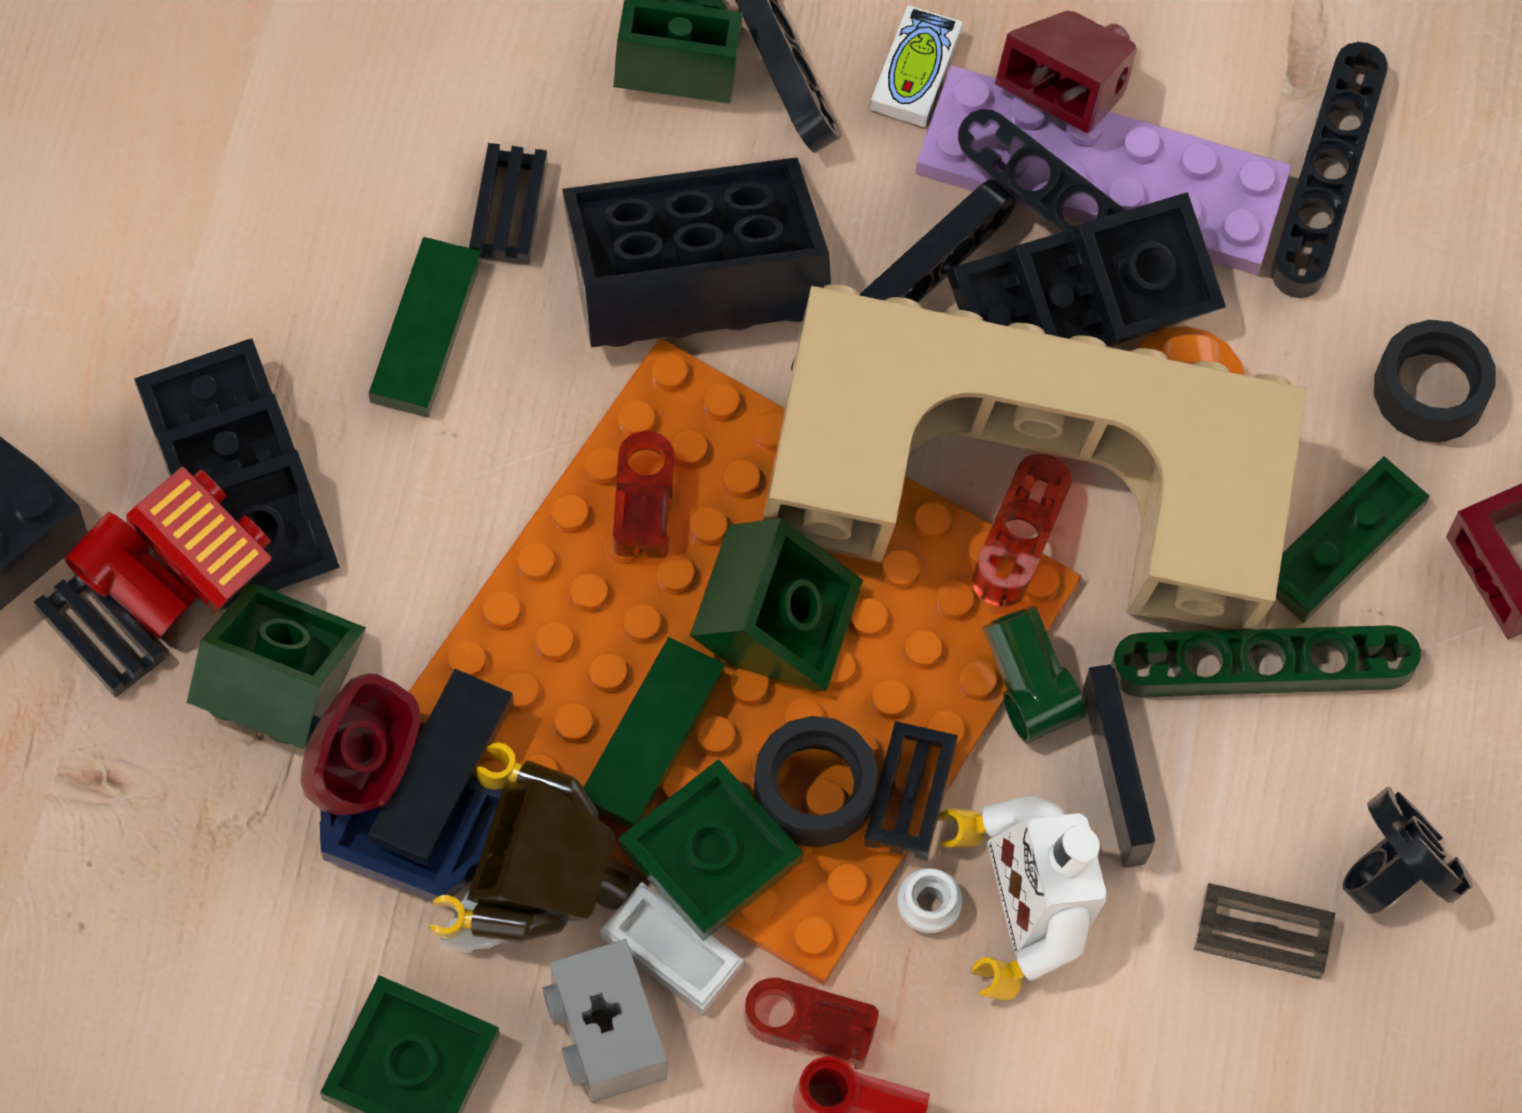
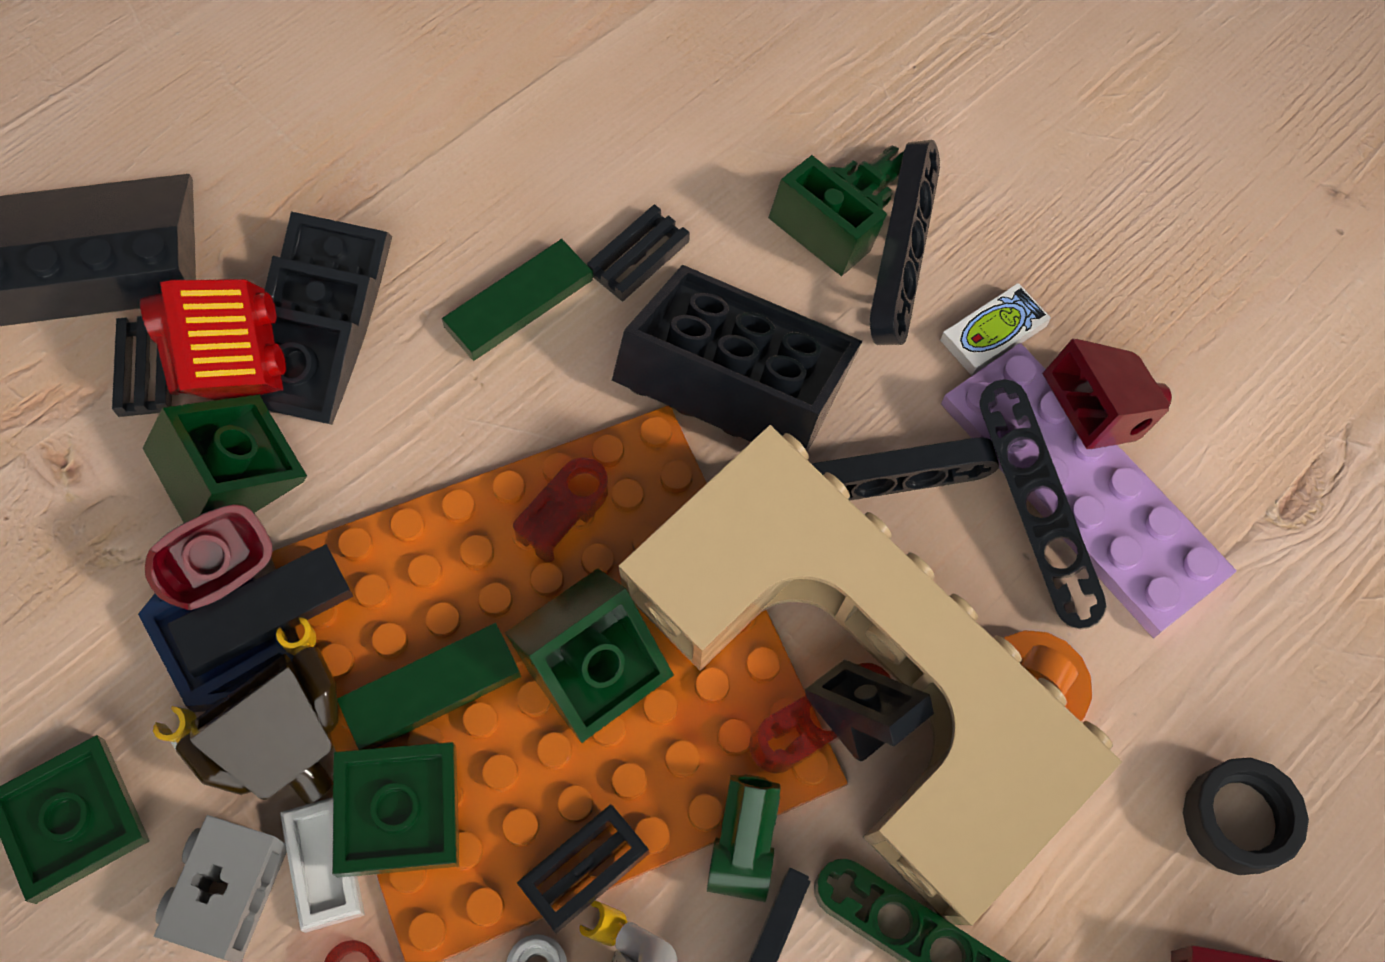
camera: 35 degrees right, 0 degrees up
(826, 735) = (480, 778): black tyre -> none
(1060, 489) = (867, 707): none -> black slope
(1100, 277) = (1017, 563): black slope -> none
(1326, 193) = (1253, 611): black beam -> none
(1347, 537) = (1084, 896): dark green tile -> none

